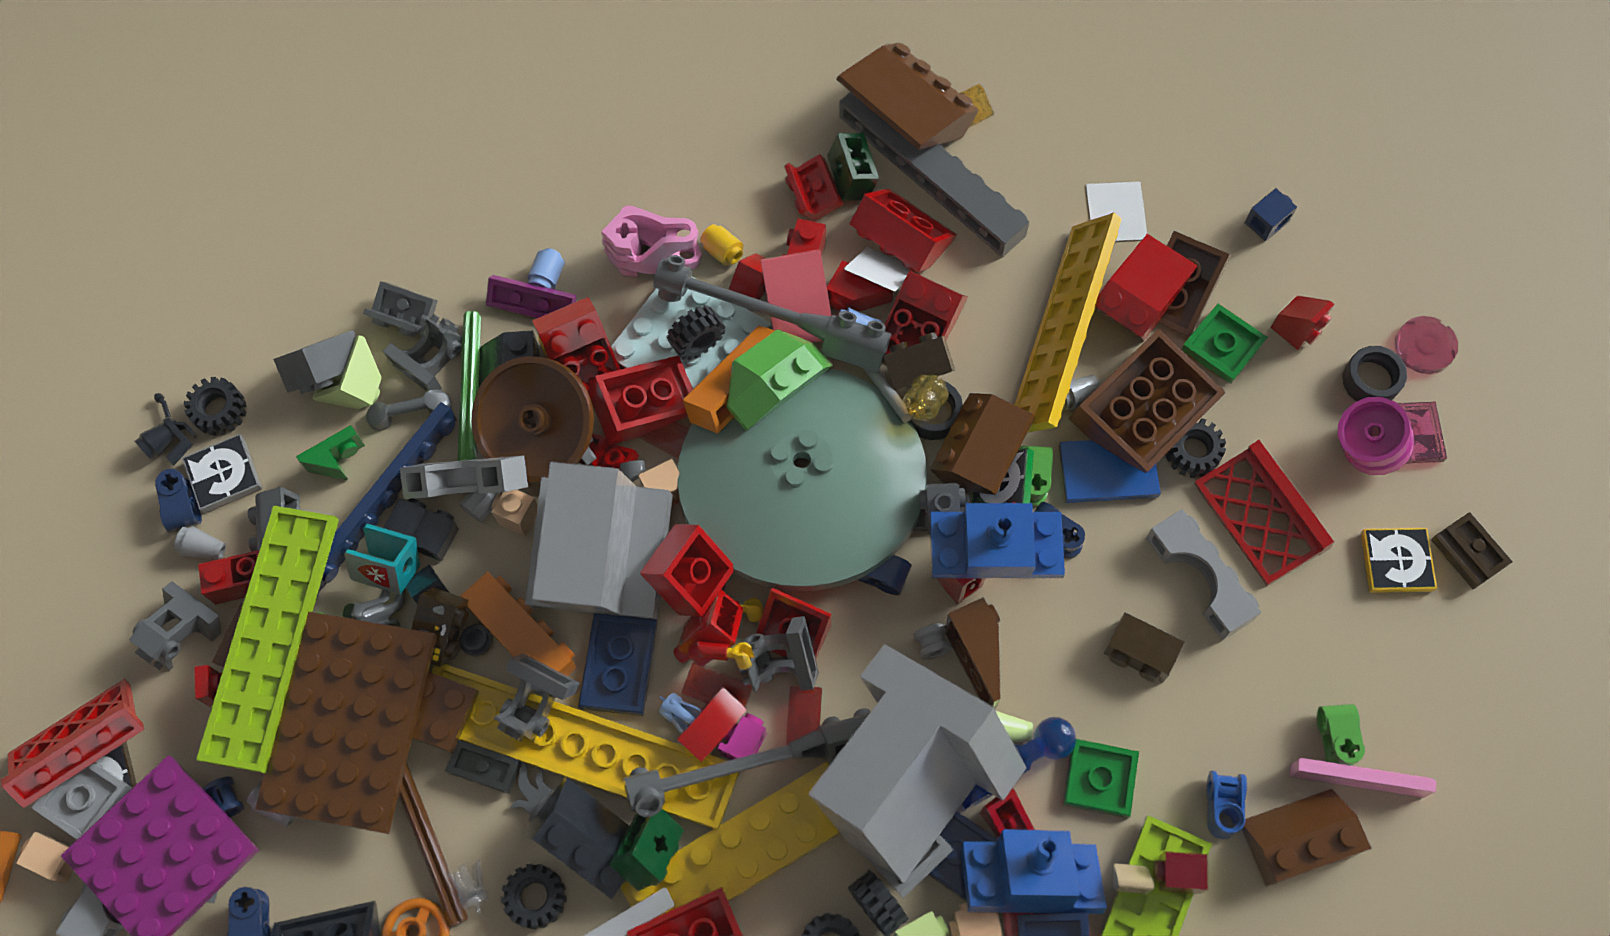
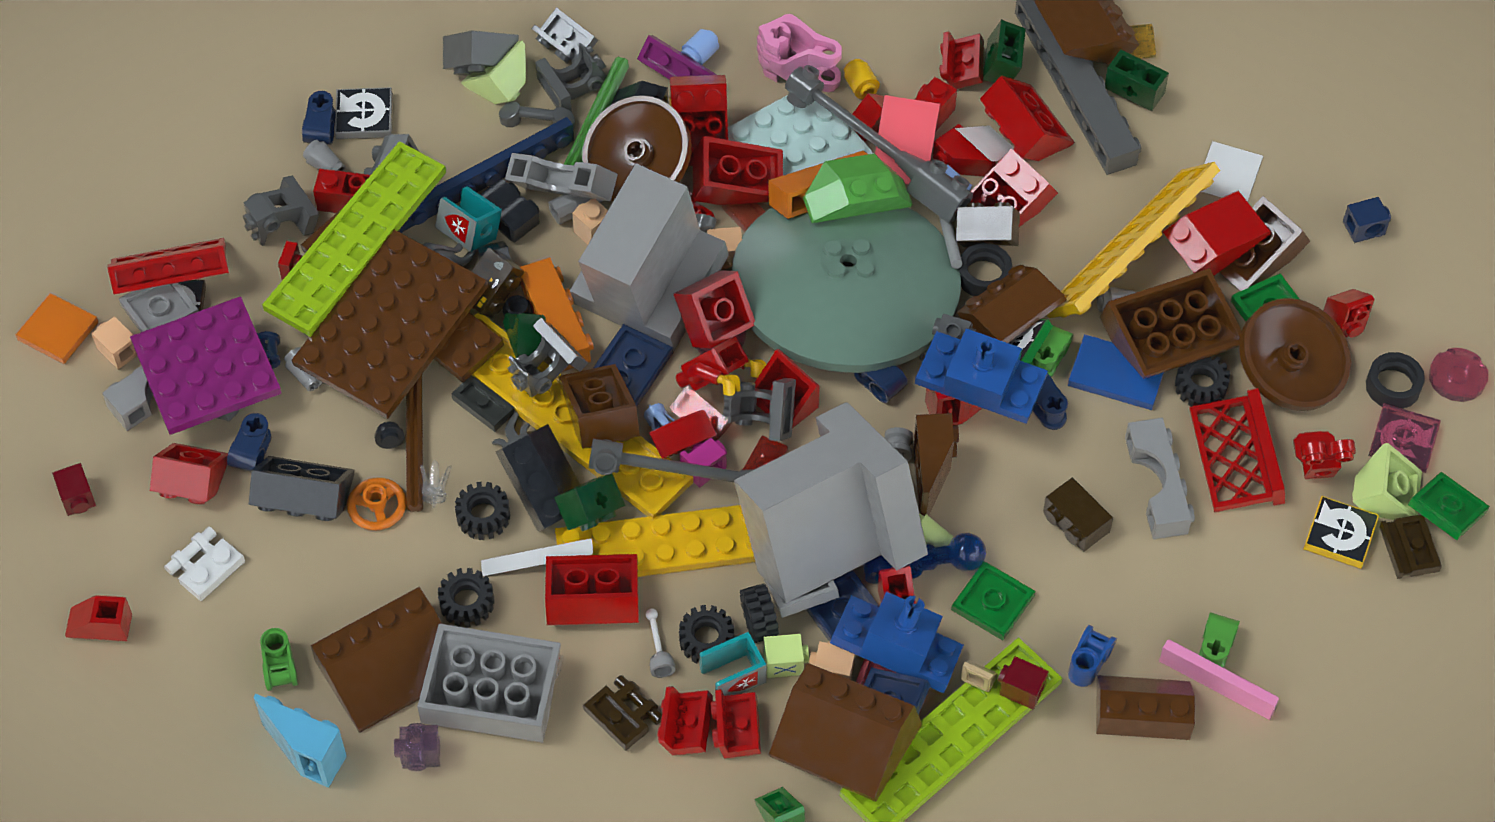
camera: 20 degrees right, 10 degrees down
(157, 439) = (321, 68): black piece -> none
(204, 395) = (379, 47): black tyre -> none
(324, 456) = (453, 127): green slope -> none
(397, 847) = (389, 435): none -> black plate
(490, 665) = (521, 333): none -> dark green slope
(611, 726) = (600, 405): none -> reddish brown slope
(695, 332) = (804, 134): black tyre -> none
(926, 397) = (978, 251): clear yellow piece -> none
(992, 148) = (1136, 80): none -> dark green brick
(1274, 387) = (1295, 354): none -> reddish brown dish
(1336, 483) = (1322, 454): none -> red piece
(1376, 418) = (1365, 416): dark pink wheel -> none
(1422, 495) = (1387, 484): none -> yellowish green slope
(1487, 492) = (1448, 505): none -> green tile

